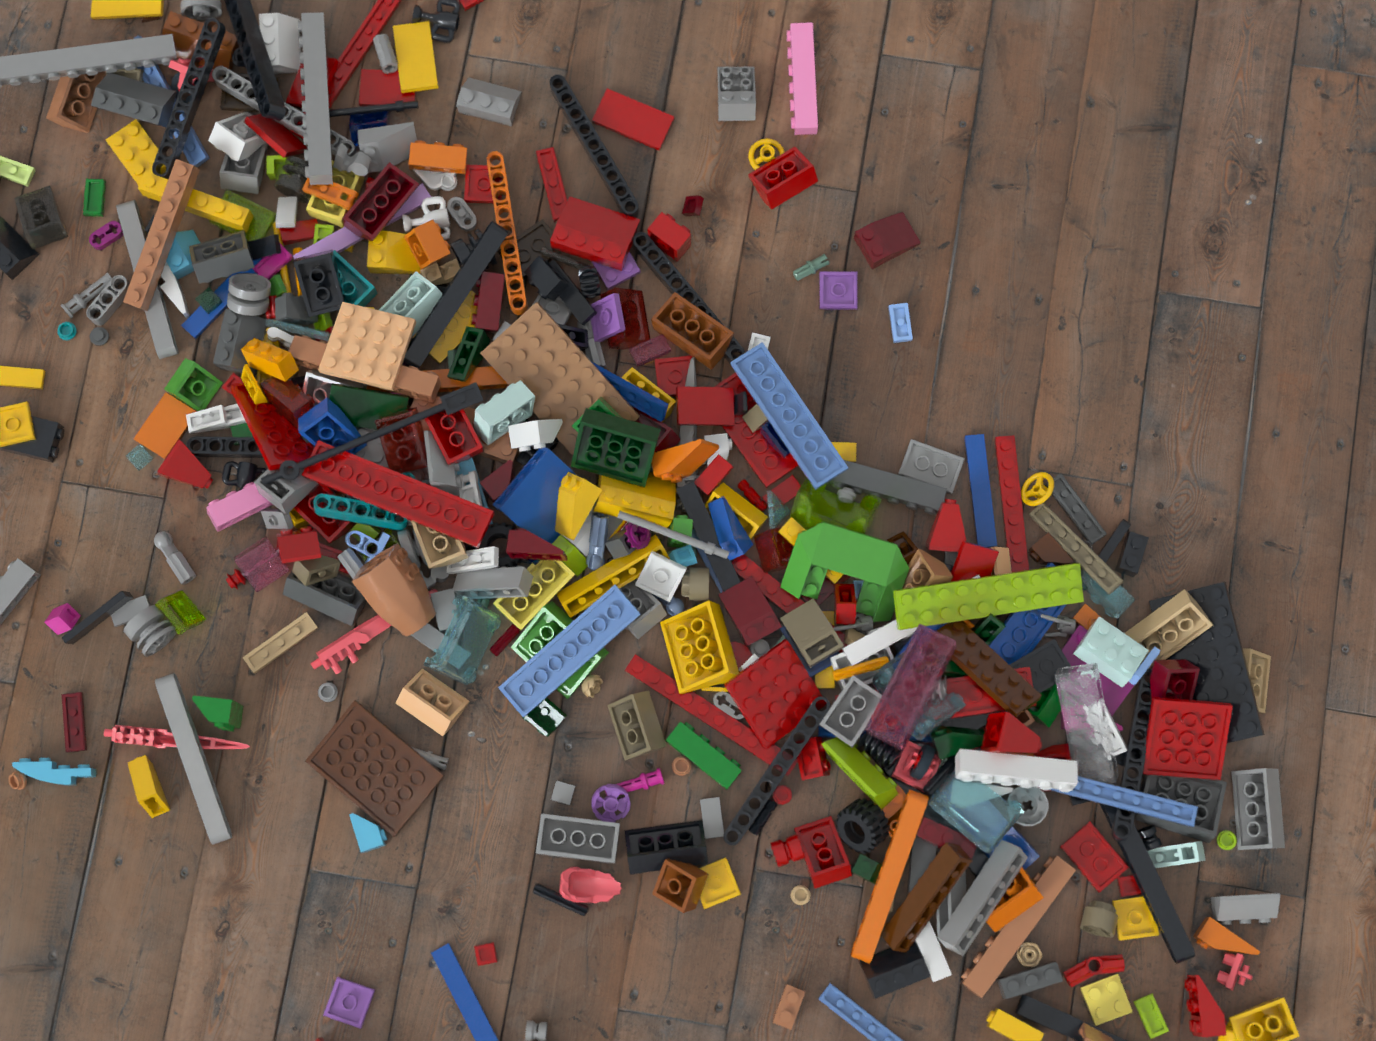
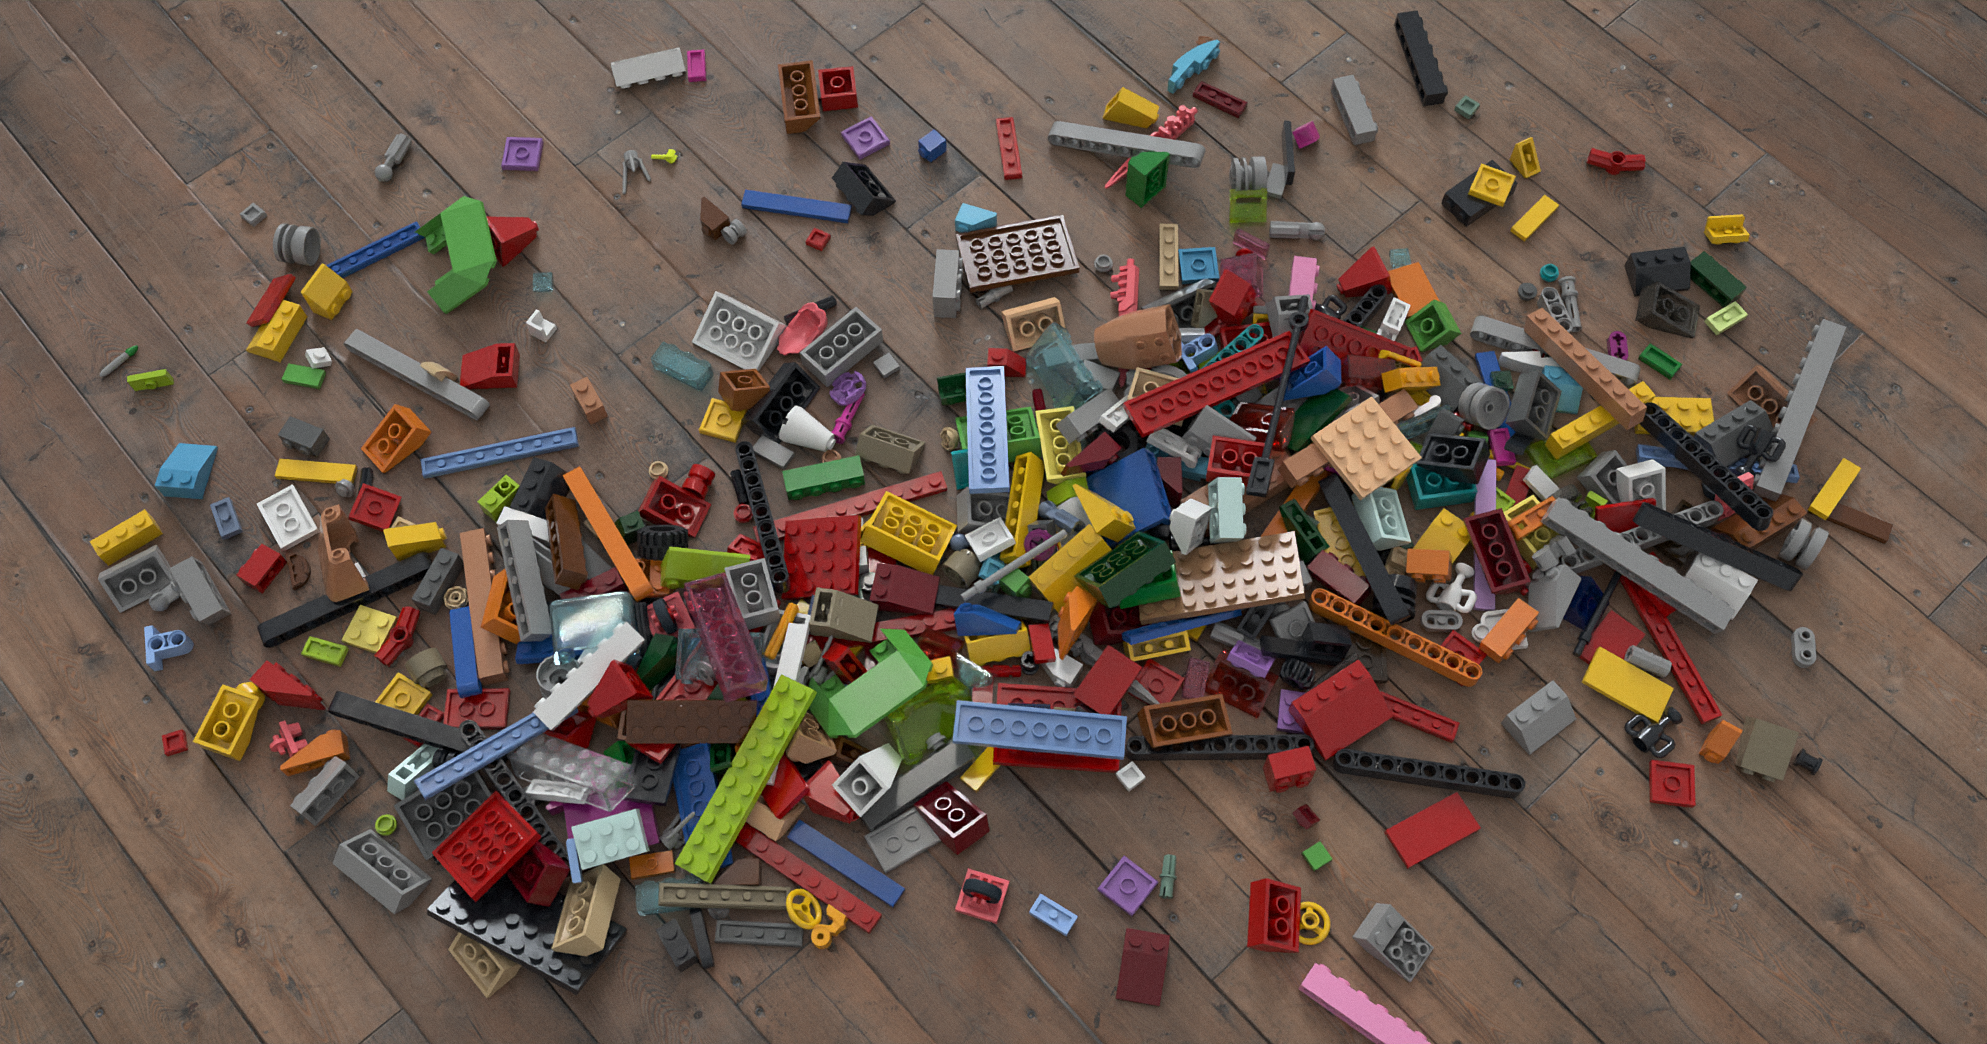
camera: 130 degrees right, 15 degrees down
(140, 70) = (1759, 445): none -> black piece
(216, 583) = (1252, 243): none -> clear pink tile
(265, 866) = (1008, 148): none -> red tile
(271, 612) = (1198, 265): none -> dark azure plate
(316, 932) = (932, 146): none -> blue brick
(406, 955) = (862, 188): none -> black slope
(452, 799) = (947, 283): none -> light grey brick
(488, 695) = (1013, 363): none -> red slope
(613, 650) = (960, 468): none -> teal tile
(629, 939) = (738, 332): none -> white slope
(677, 799) = (806, 431): none -> white cone
(696, 958) = (682, 366): none -> clear light blue brick
(714, 181) = (1317, 856): none -> bright green tile
(733, 483) = (1029, 669): none -> black bush
(890, 441) = (953, 817): none -> dark red slope
(916, 509) = (868, 778): none -> white slope
(926, 379) = (982, 896): none -> coral plate
(927, 996) = (498, 496): none -> lime slope
(1040, 464) = (822, 934): none -> light orange leg
(1064, 903) = (464, 653): none -> blue beam

